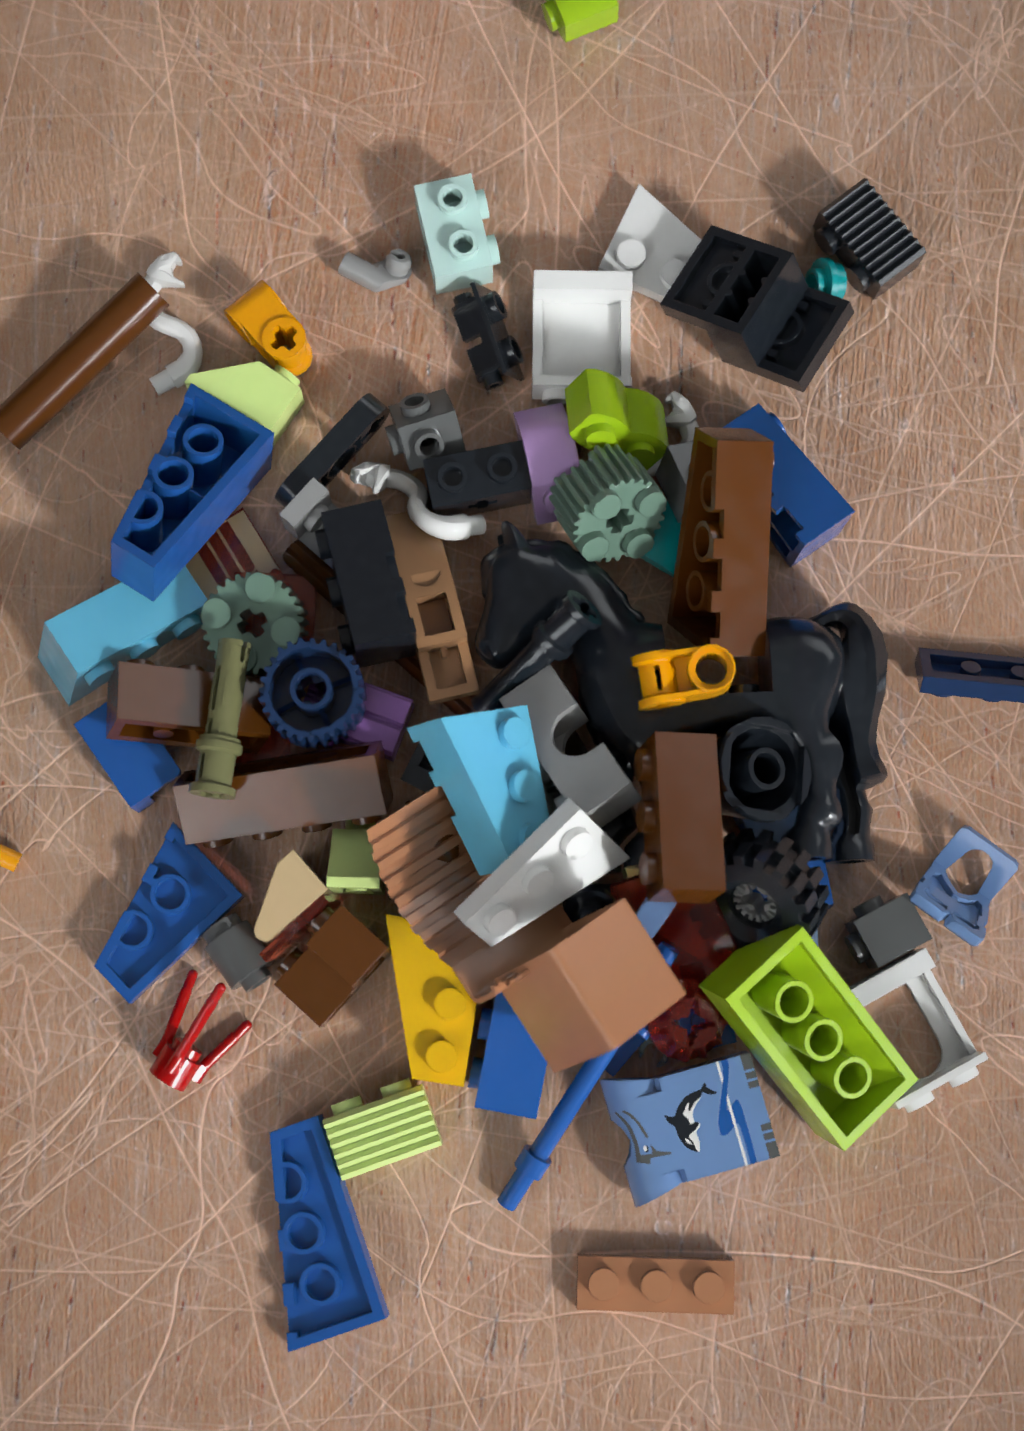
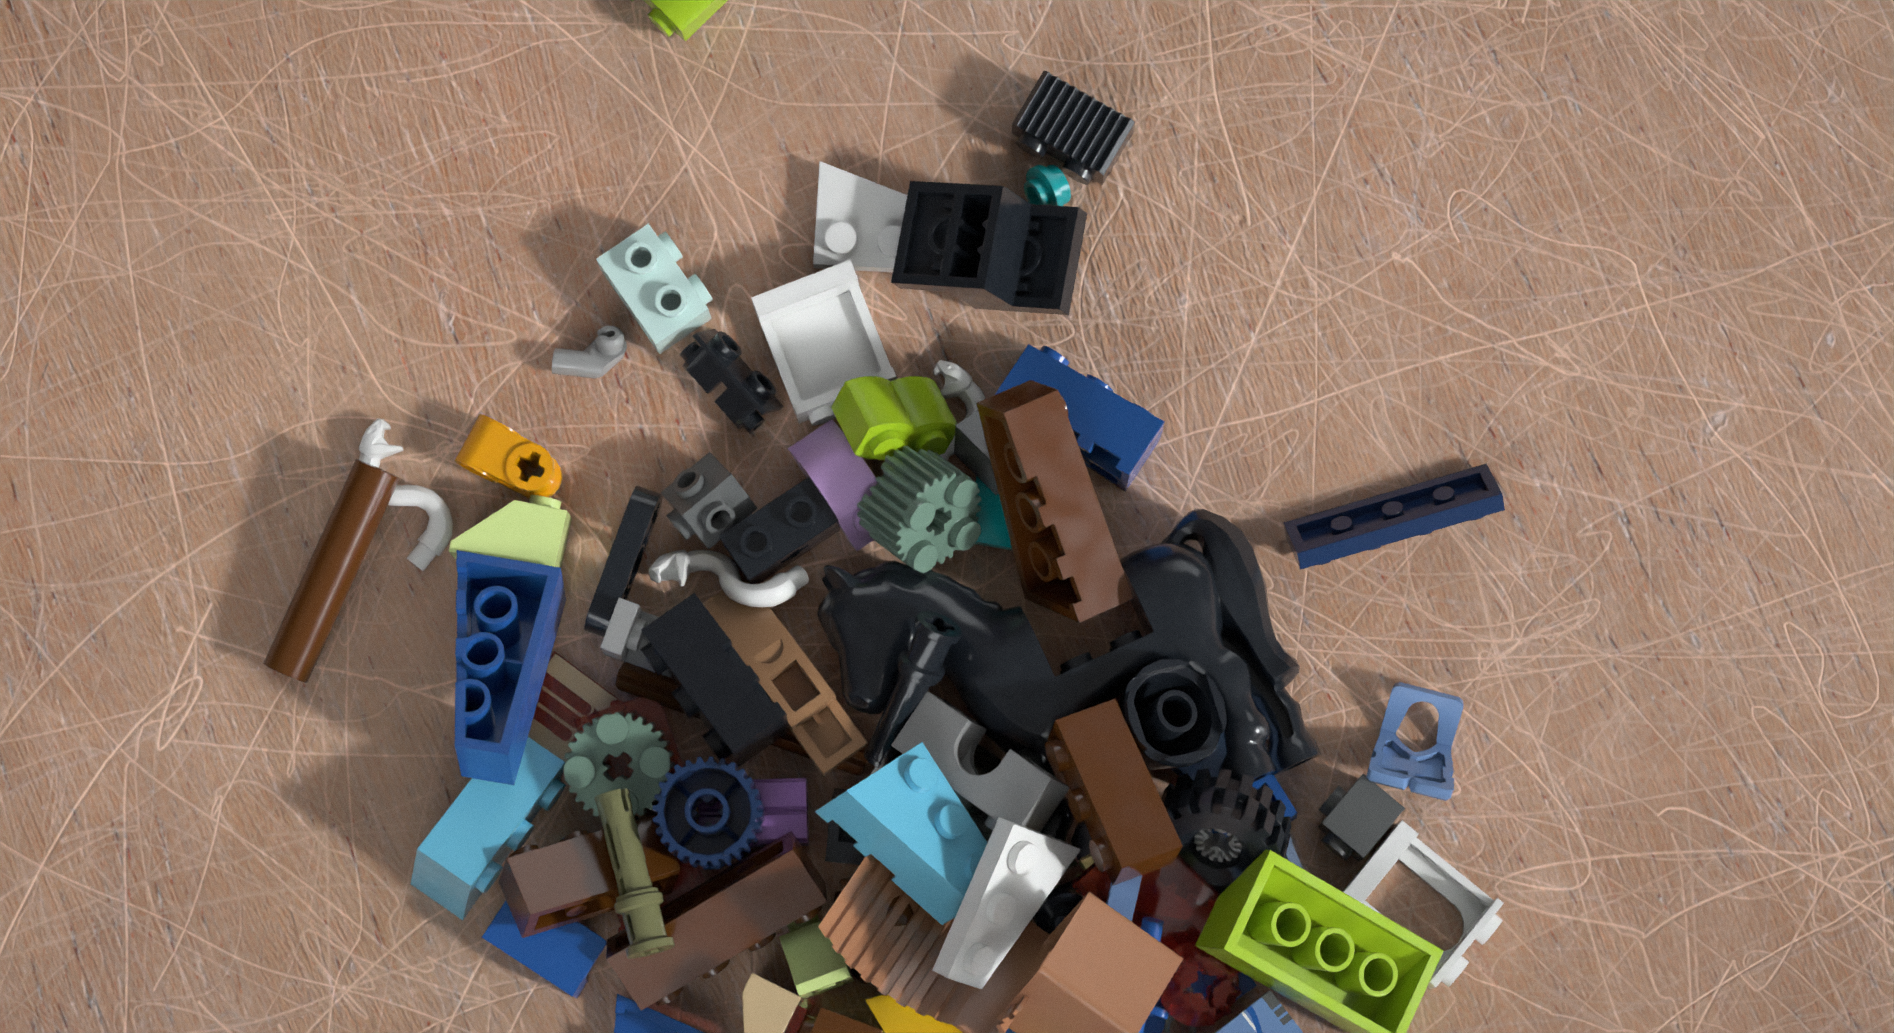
camera: 15 degrees left, 0 degrees up
(679, 675) = (1057, 655): light orange piece -> none

